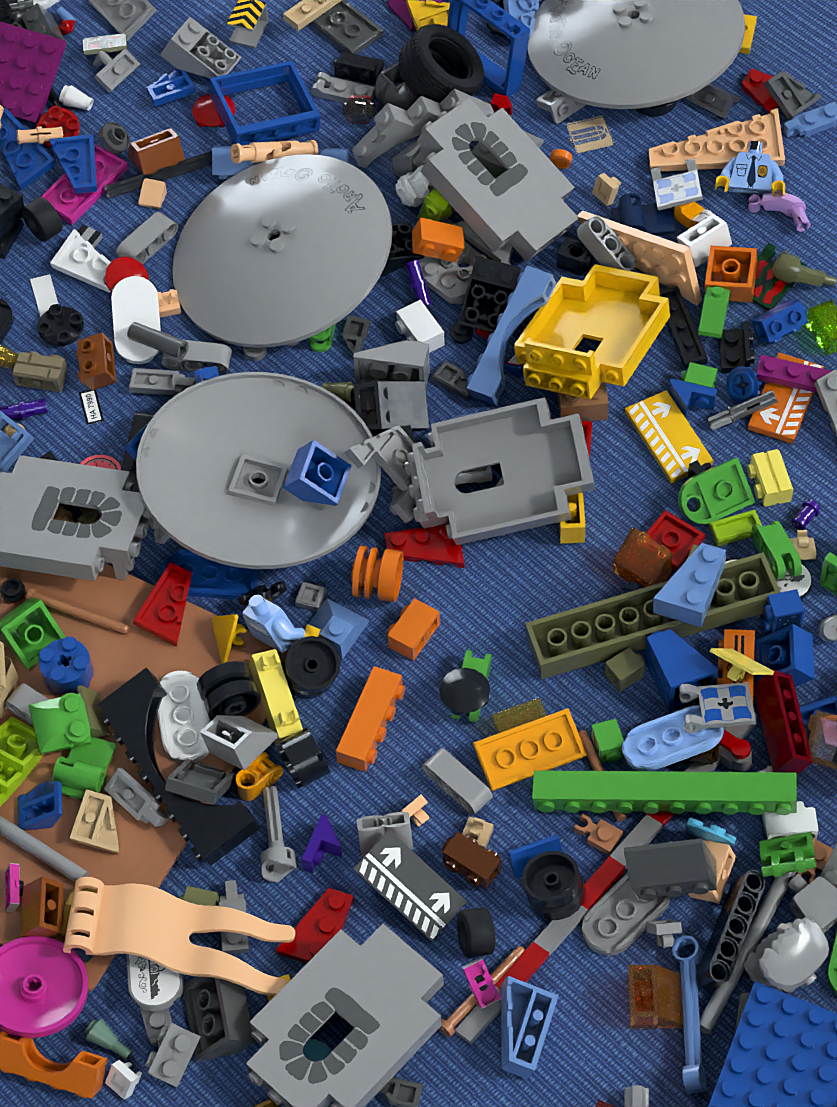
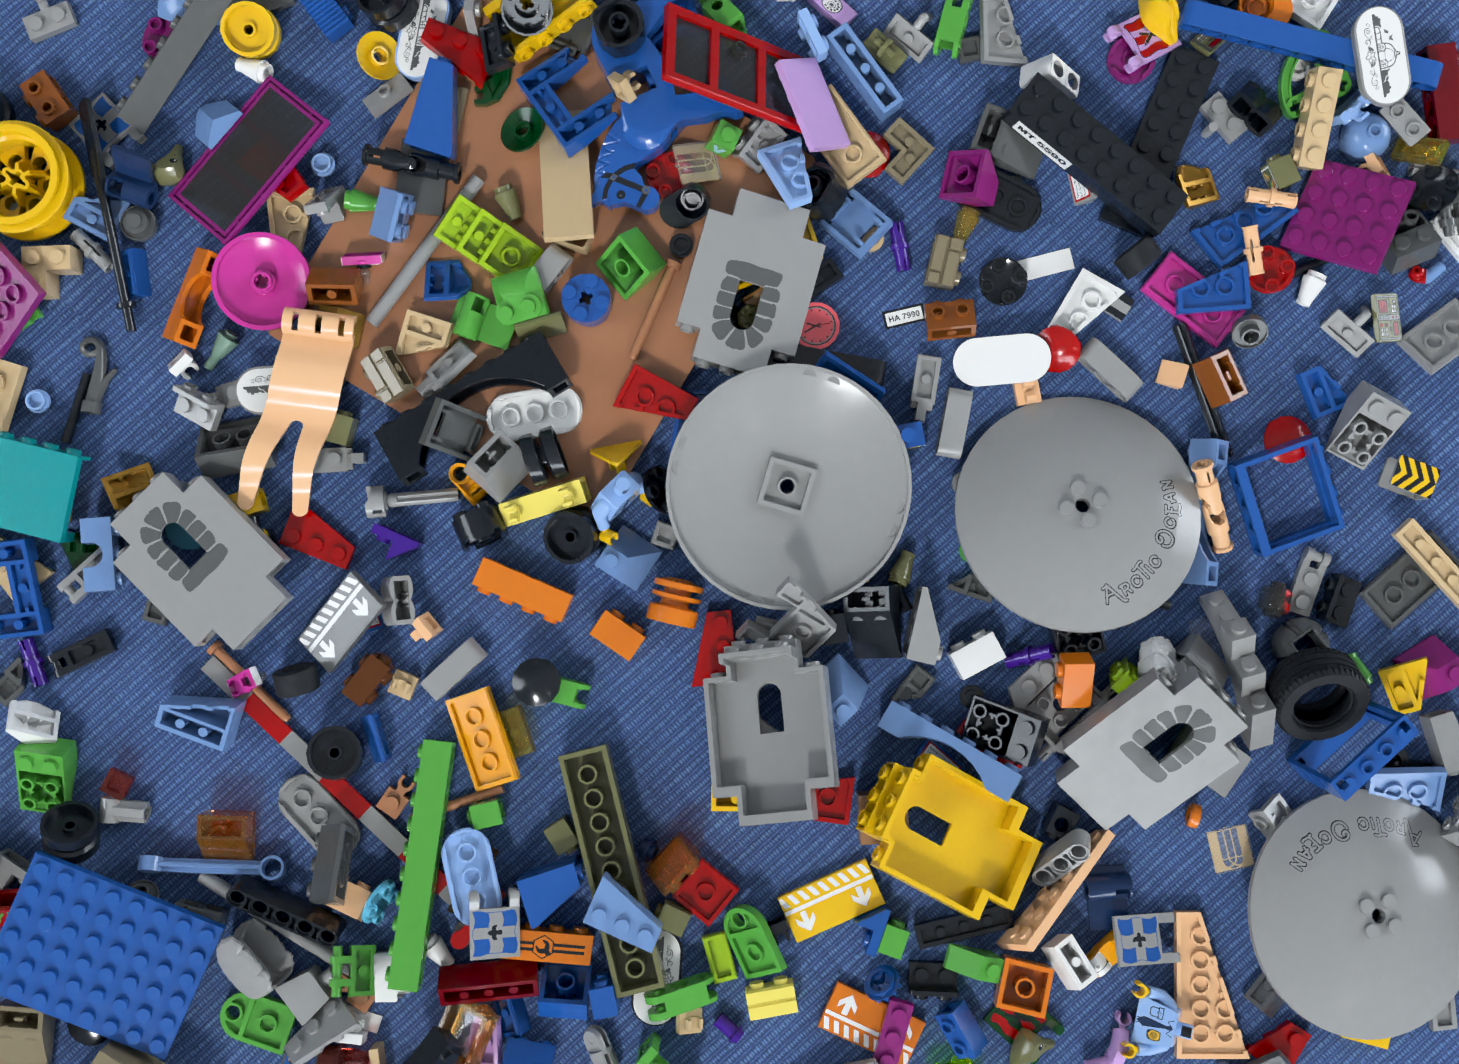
camera: 90 degrees right, 30 degrees up
(140, 853) = (387, 375): none -> dark tan brick
(157, 340) = (966, 382): dark grey piece -> none
(317, 475) = (776, 546): blue slope -> none
(501, 101) = (1274, 755): red piece -> none
(606, 188) = (1149, 862): tan tile -> none
(663, 930) = (292, 850): light grey tile -> none
(740, 410) = (853, 979): dark grey axle -> none
(740, 664) = (536, 953): light yellow piece -> none

